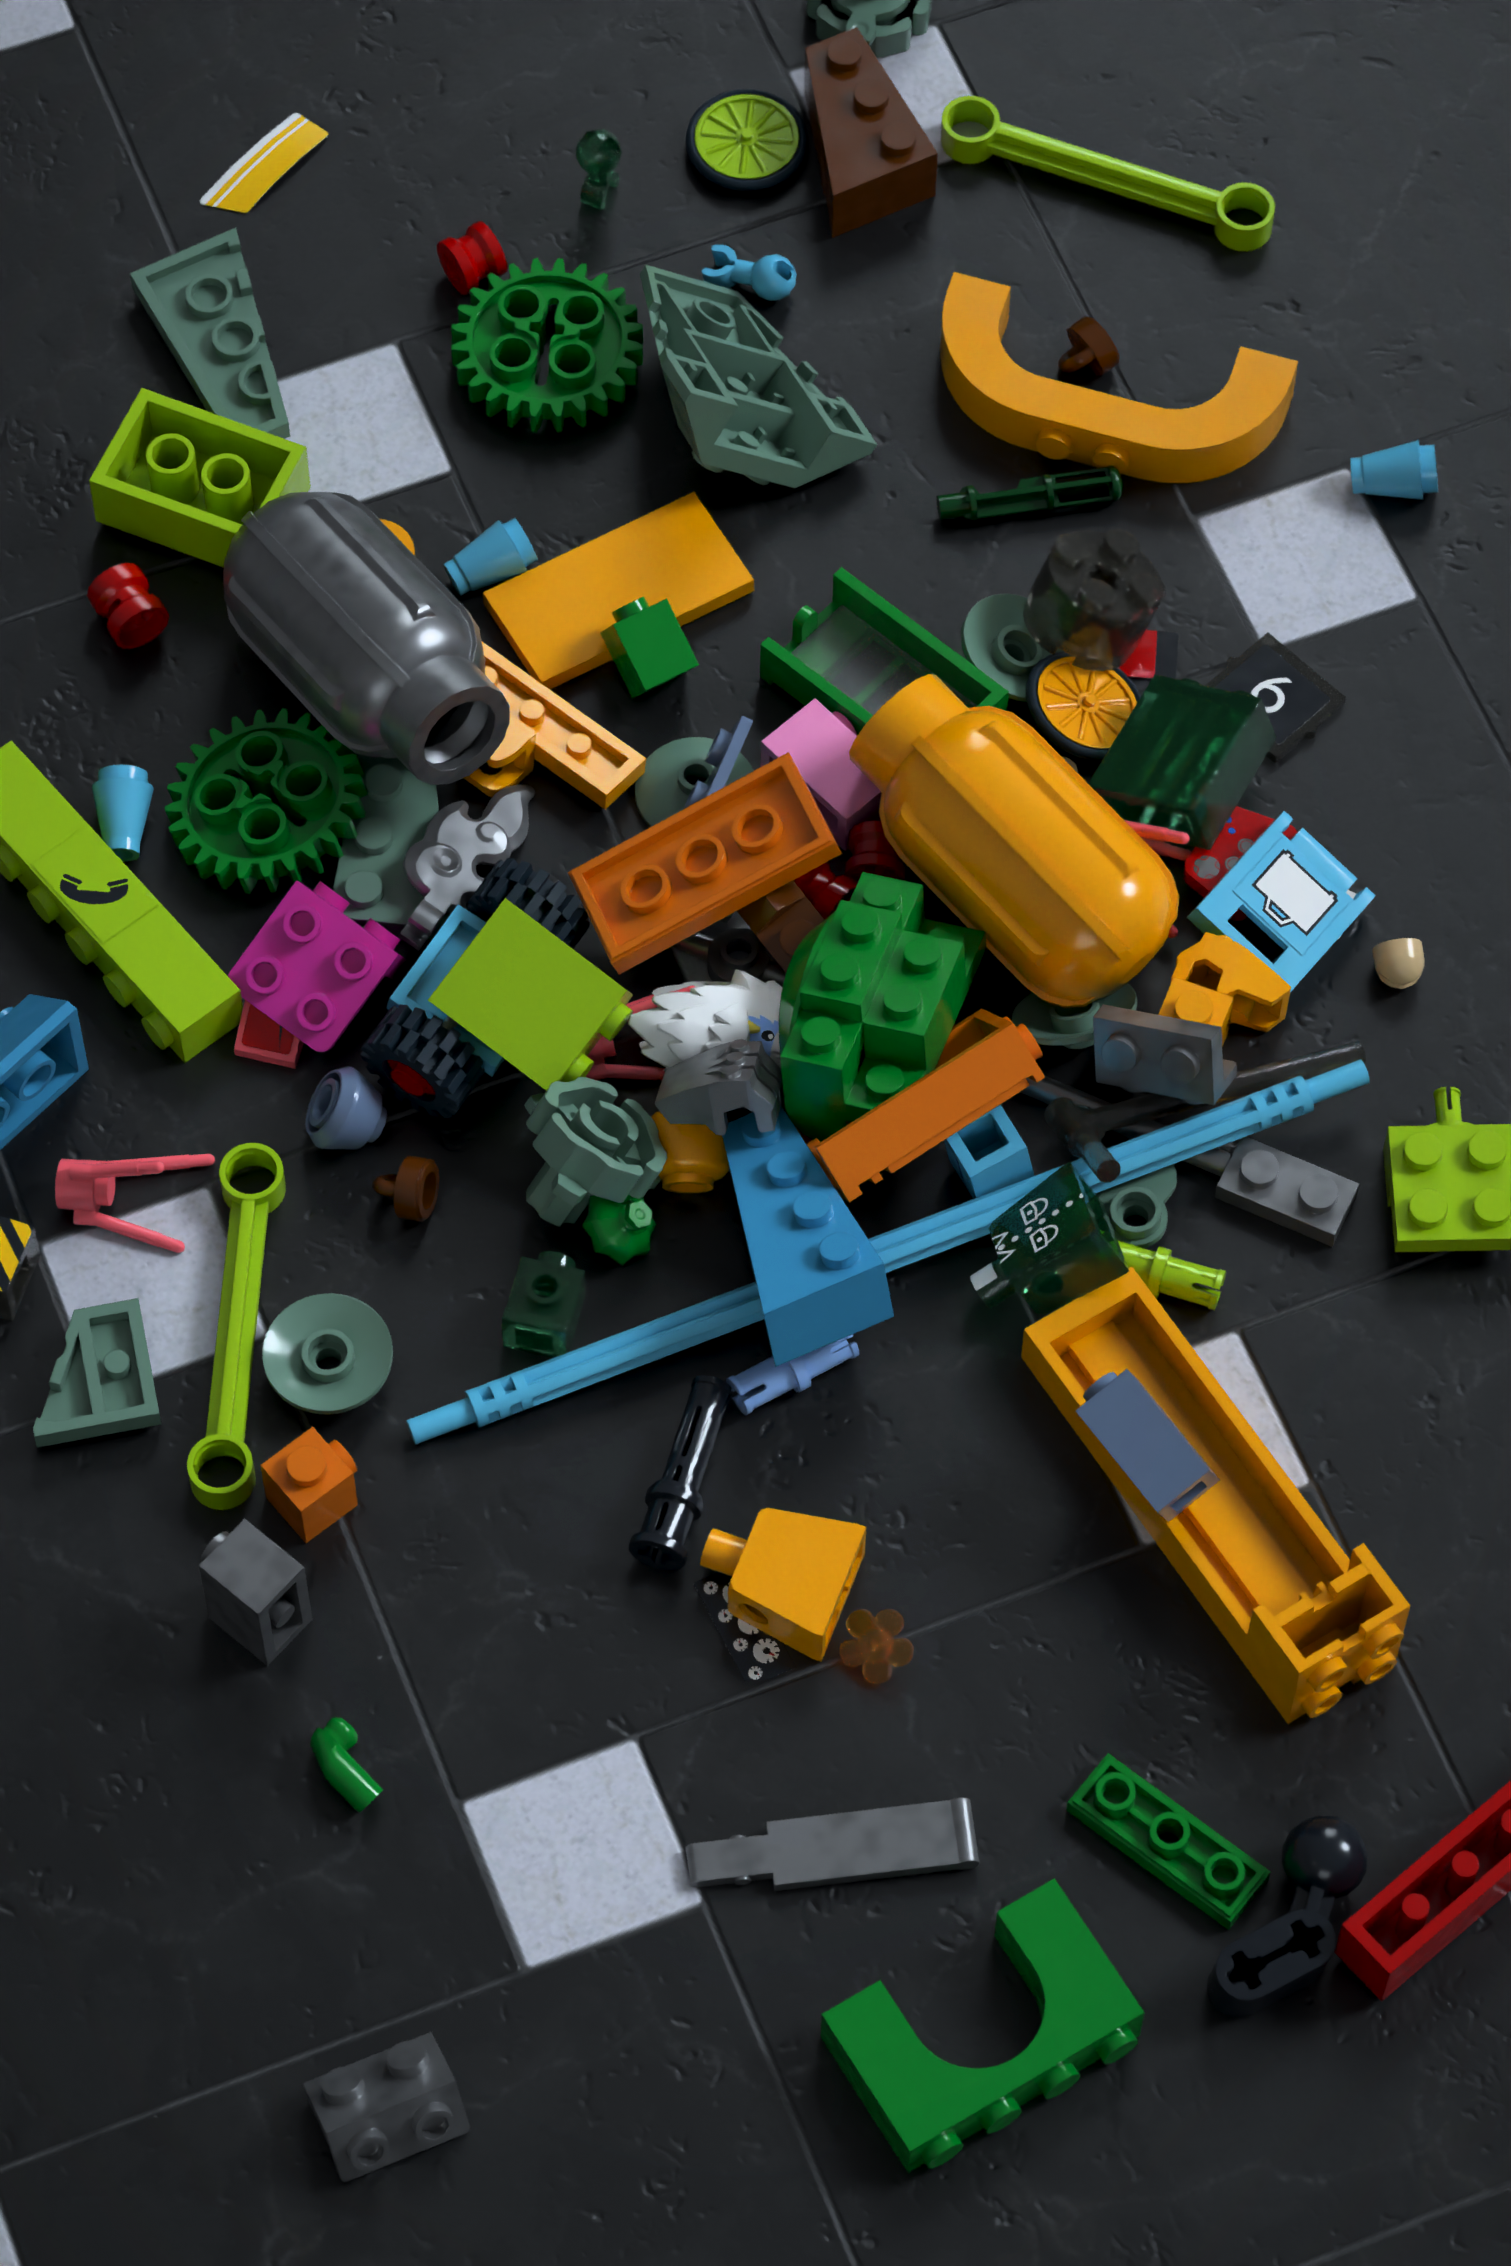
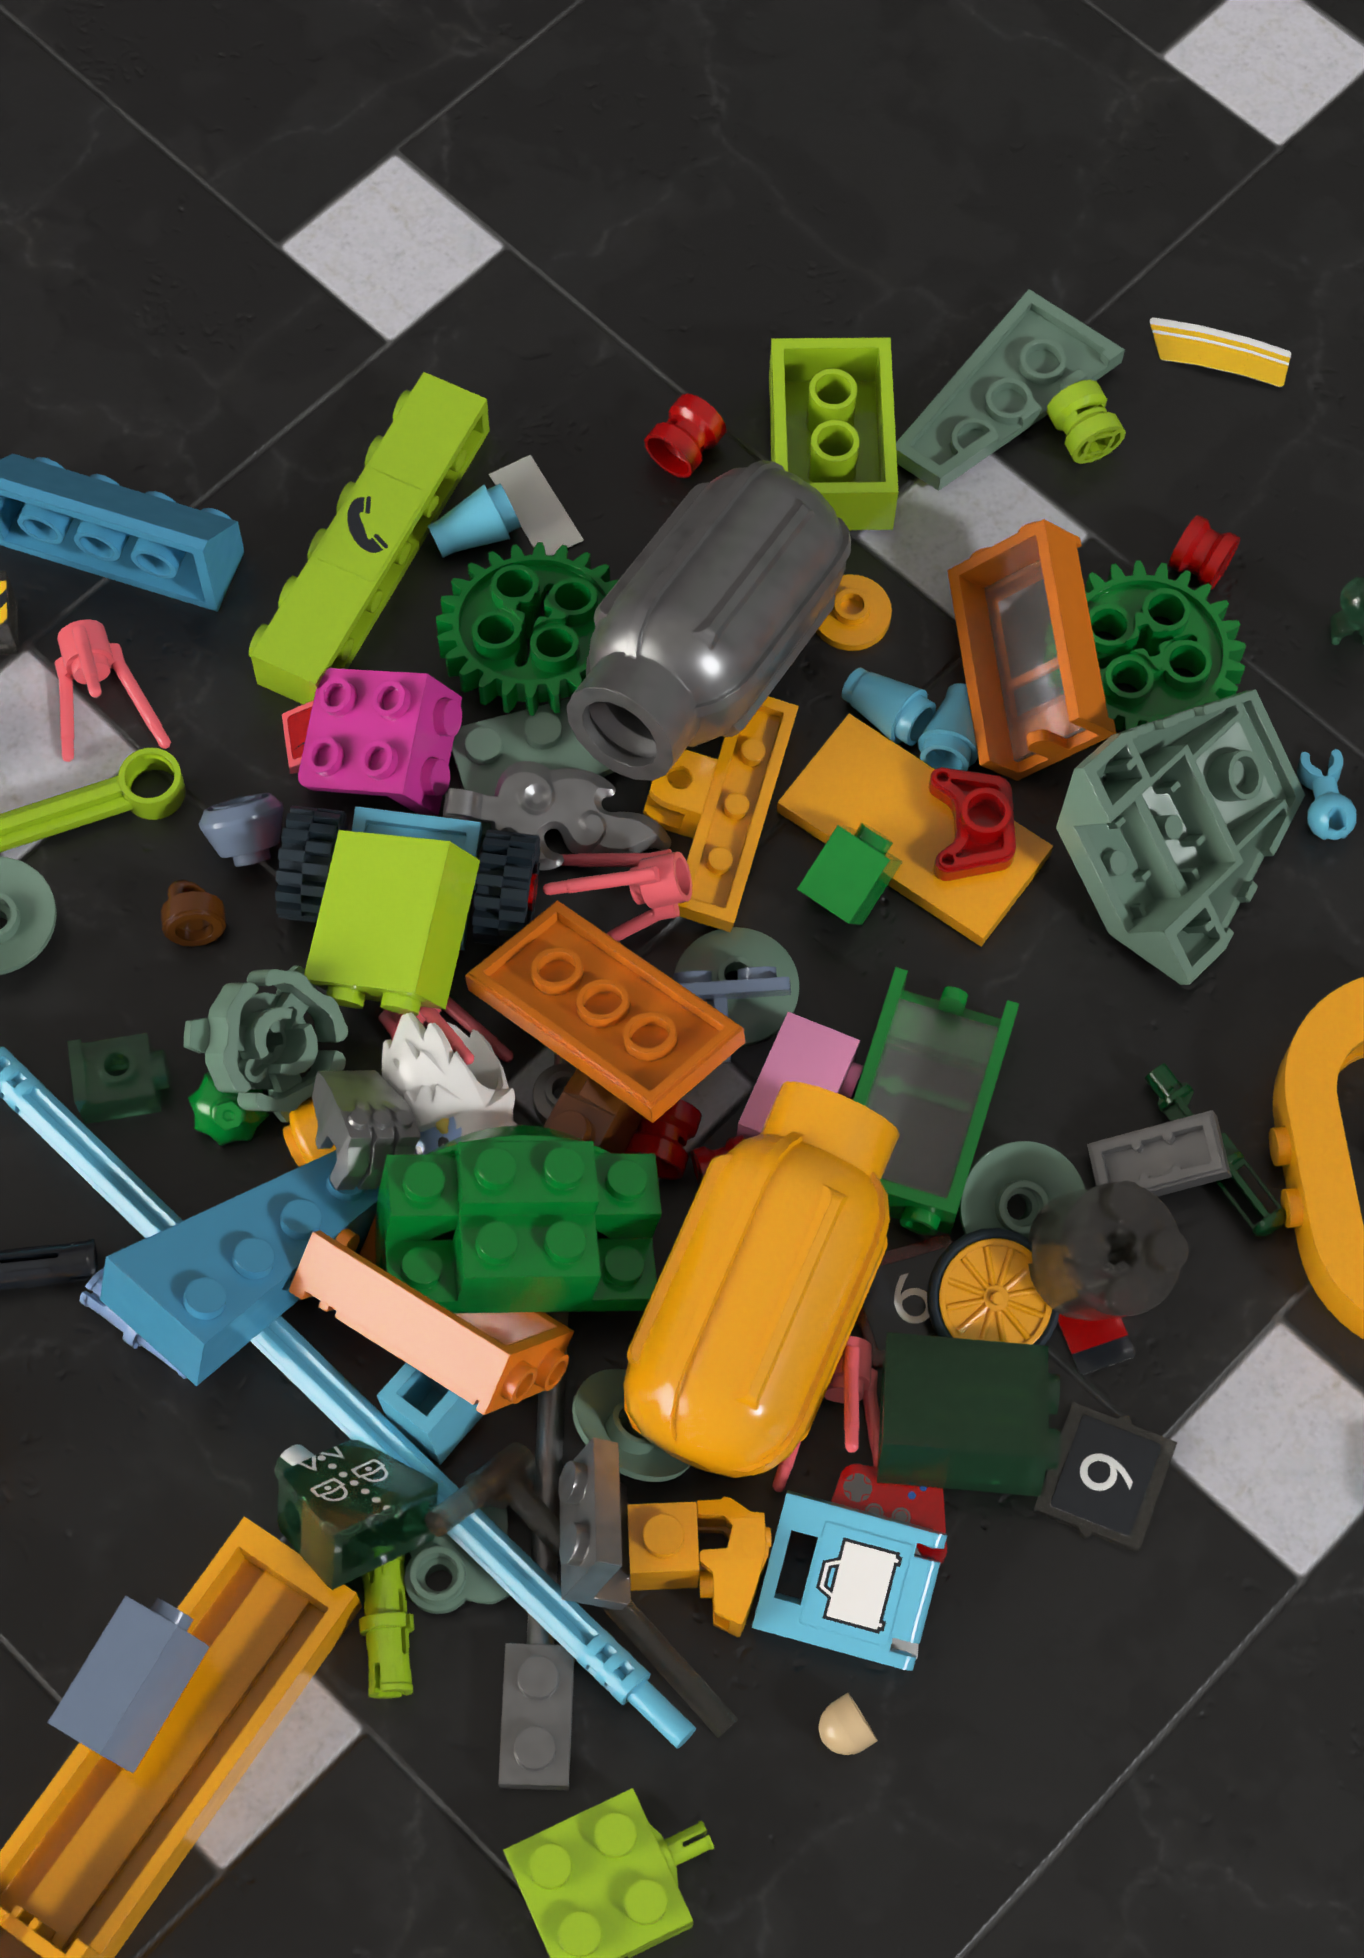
camera: 65 degrees right, 5 degrees up
(155, 757) = (536, 505): none -> white sticker
(290, 289) = (1084, 419): none -> lime wheel
(508, 418) = (1029, 651): none -> orange door
(548, 522) = (950, 733): none -> medium azure cone
(586, 791) = (655, 879): none -> coral plant
(646, 530) = (981, 823): none -> red piece
(1022, 531) = (1164, 1155): none -> flat silver plate

